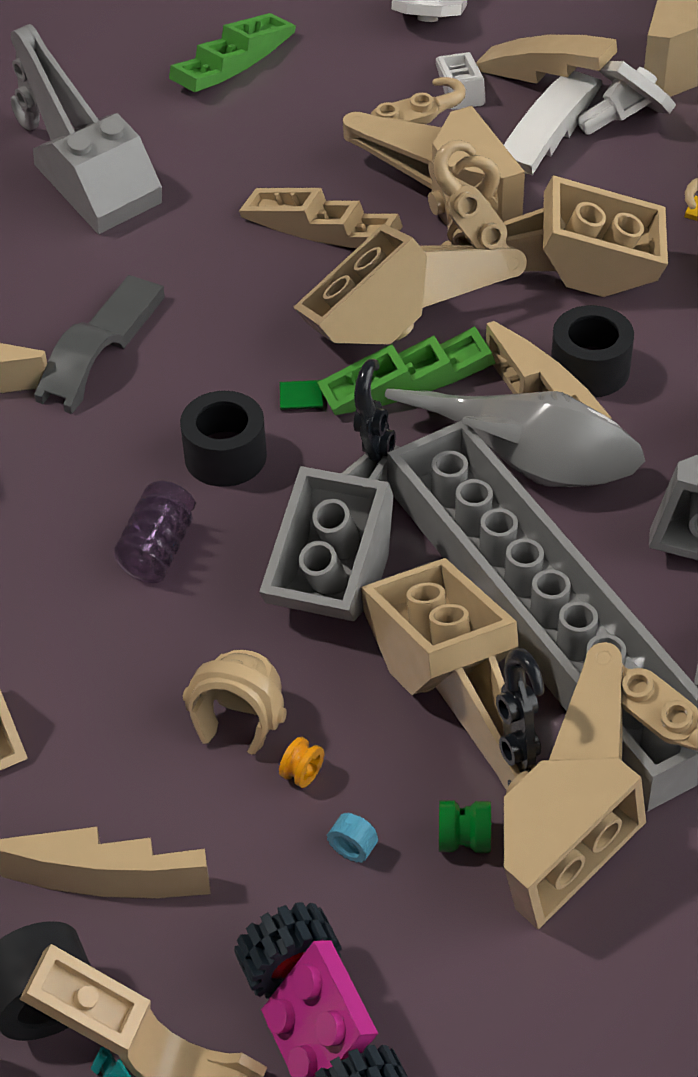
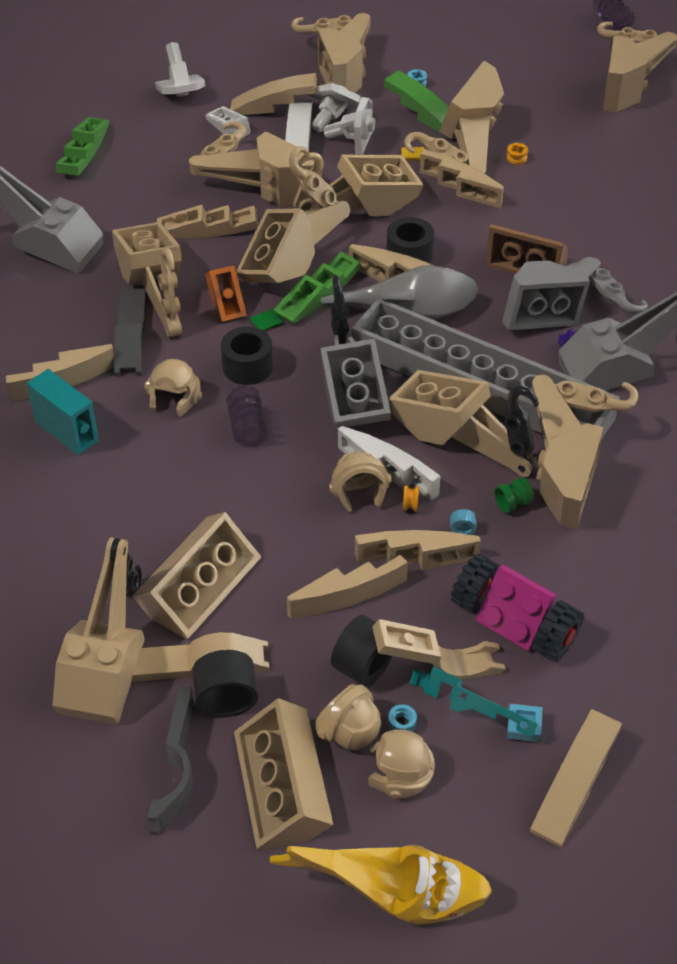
camera: 30 degrees left, 0 degrees up
(89, 433) = (174, 377): none -> tan helmet
(185, 237) = (150, 255): none -> tan slope
(264, 332) = (225, 293): none -> orange slope
(266, 854) = (427, 547): none -> tan slope
(309, 684) = (401, 466): none -> white slope
(639, 141) = (355, 126): none -> white piece

